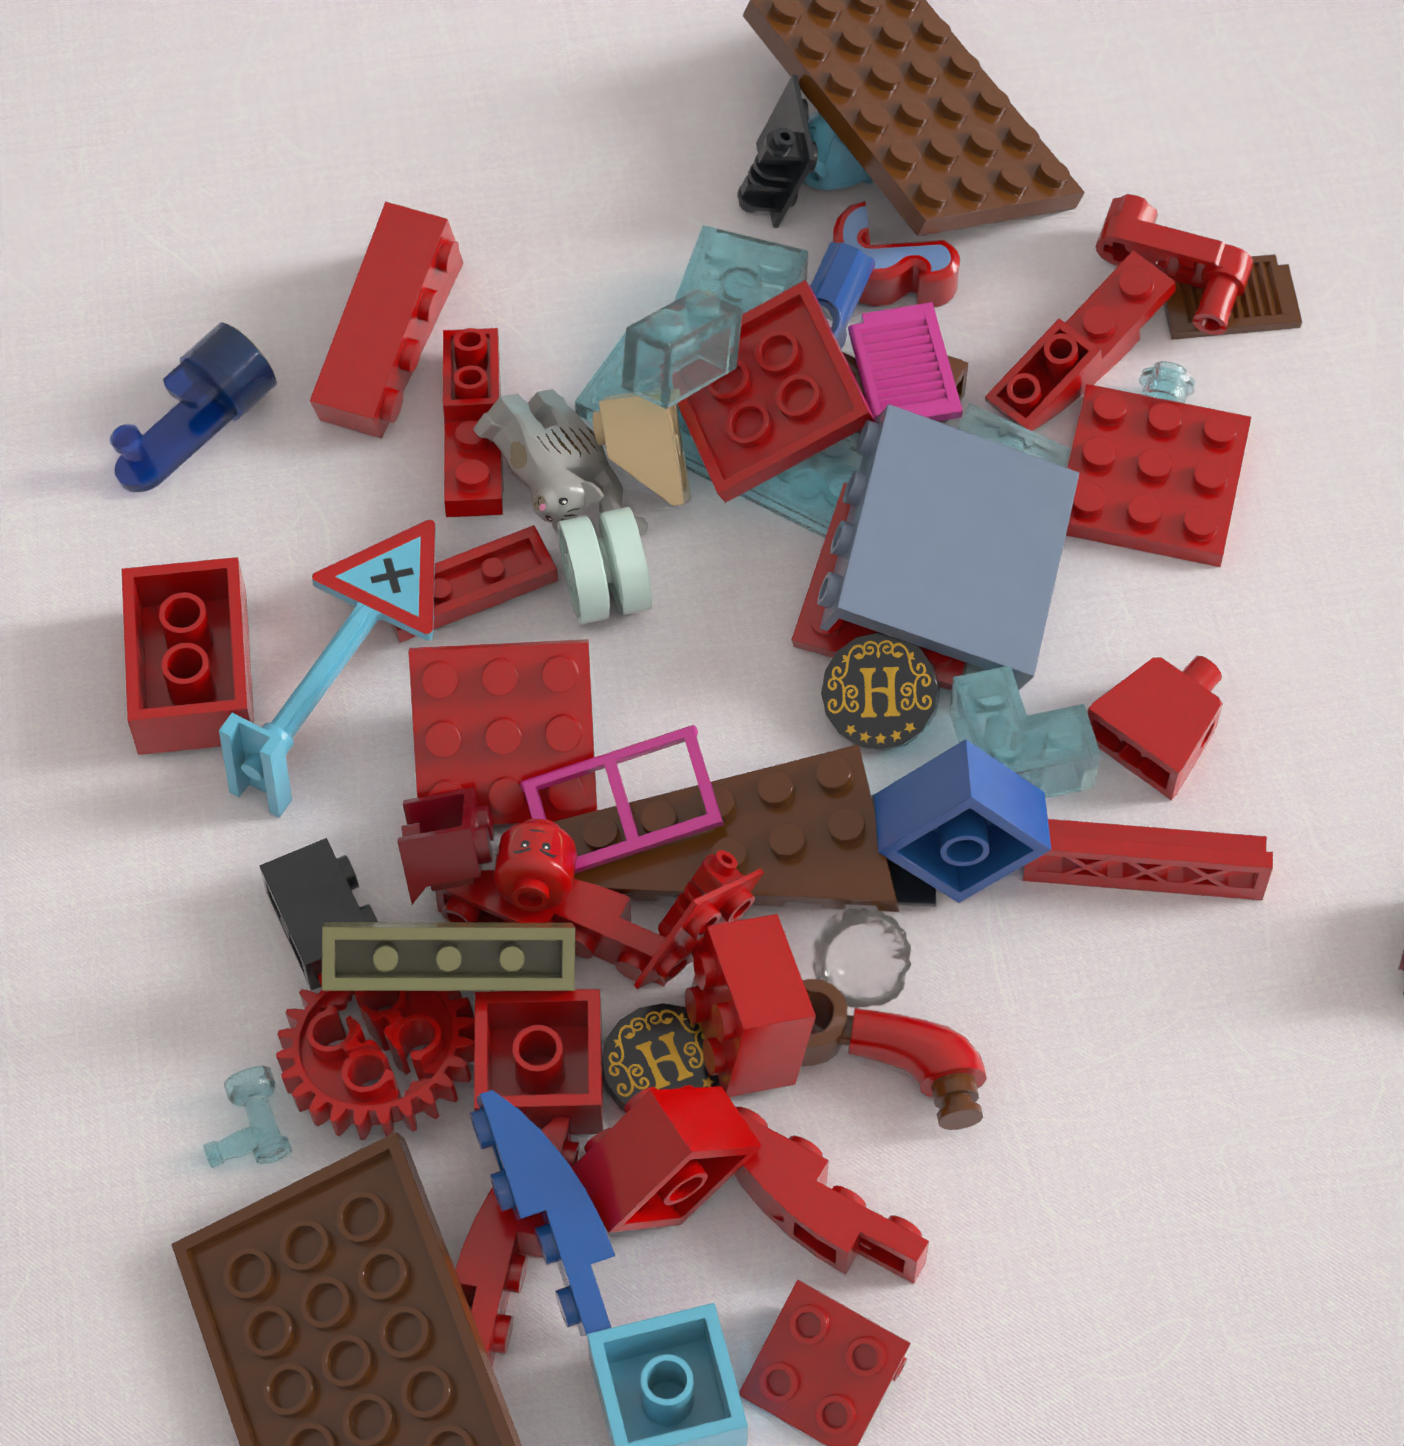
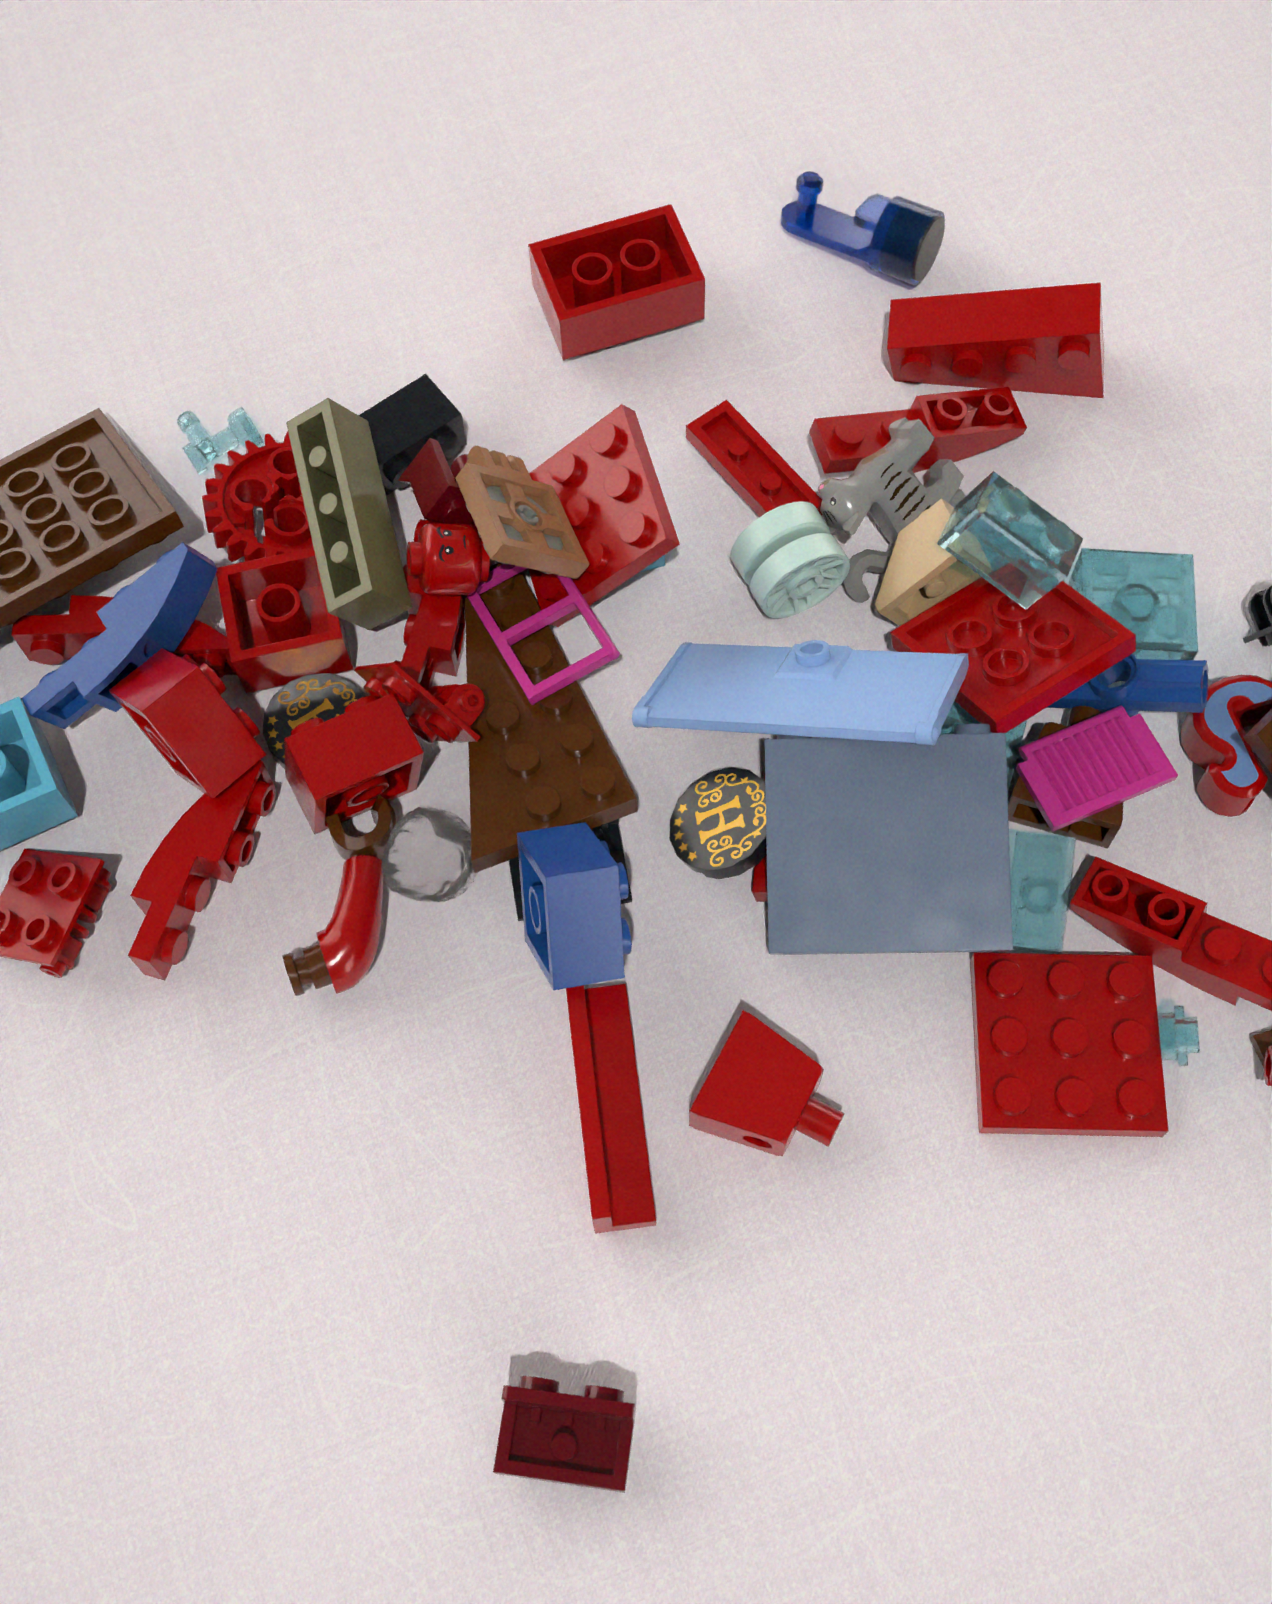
camera: 80 degrees right, 5 degrees up
(383, 583) = (724, 405): medium azure piece -> none
(506, 781) = (519, 516): none -> medium nougat piece
(776, 577) = (805, 691): none -> light blue door
(1046, 748) = (687, 952): clear light blue brick -> none

